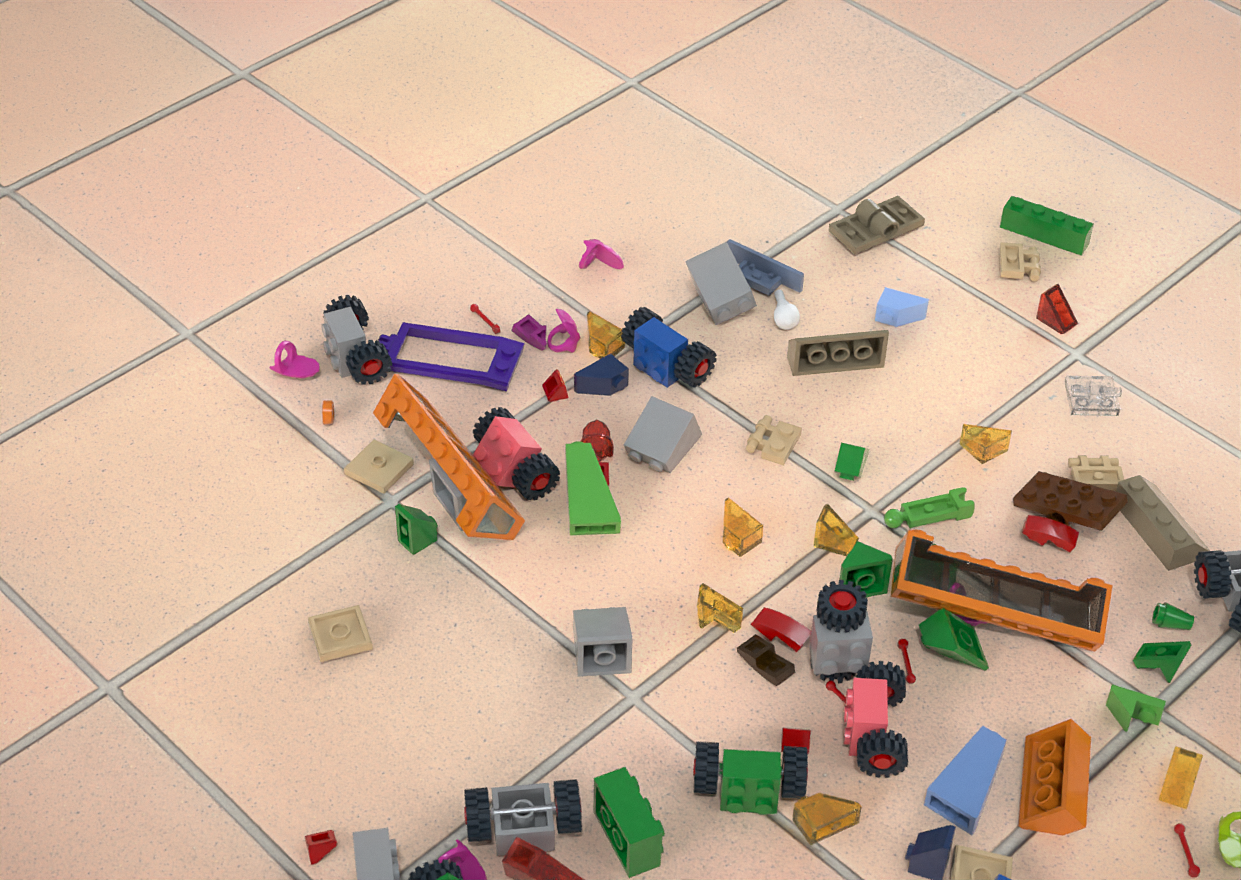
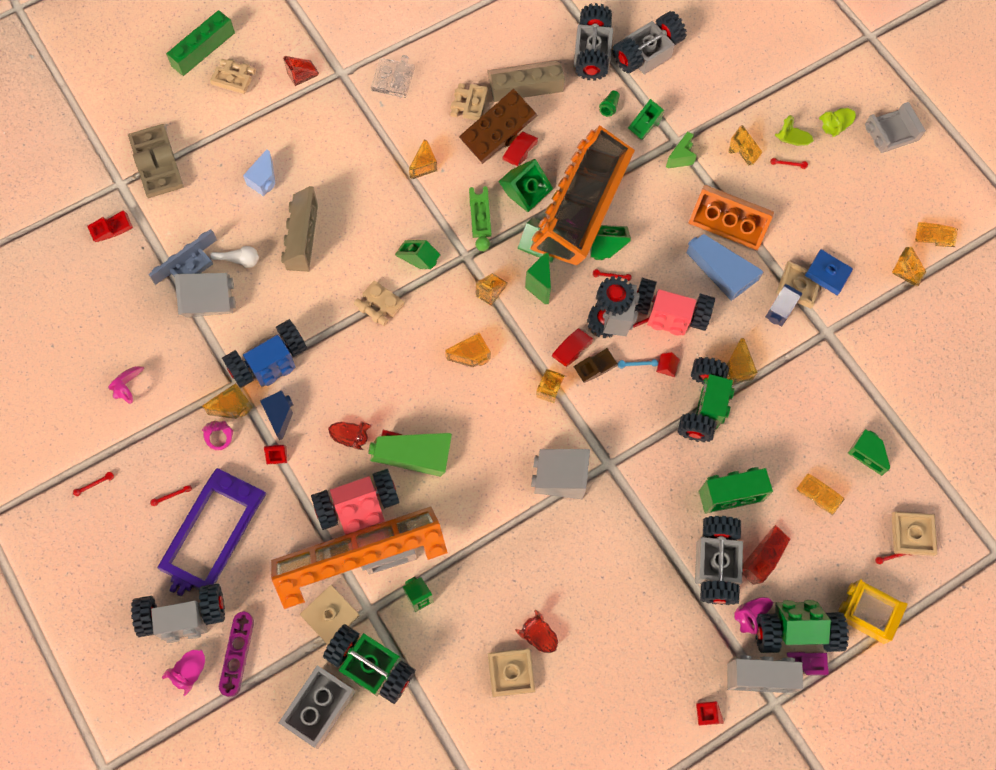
camera: 80 degrees left, 25 degrees up
(271, 466) = (317, 707): none -> light grey brick
(319, 395) = (240, 654): none -> magenta beam
(326, 494) = (369, 664): none -> brick
(328, 412) = (257, 649): orange tile -> none
(392, 650) = (539, 634): none -> clear red piece
(494, 270) = (108, 476): none -> red hinge
(531, 332) = (201, 459): magenta slope -> none
(662, 435) = (363, 383): light grey slope -> none
(778, 209) = (108, 228): none -> red slope
(779, 690) = (621, 364): none -> dark azure hinge
(998, 541) = (526, 184): none -> green slope

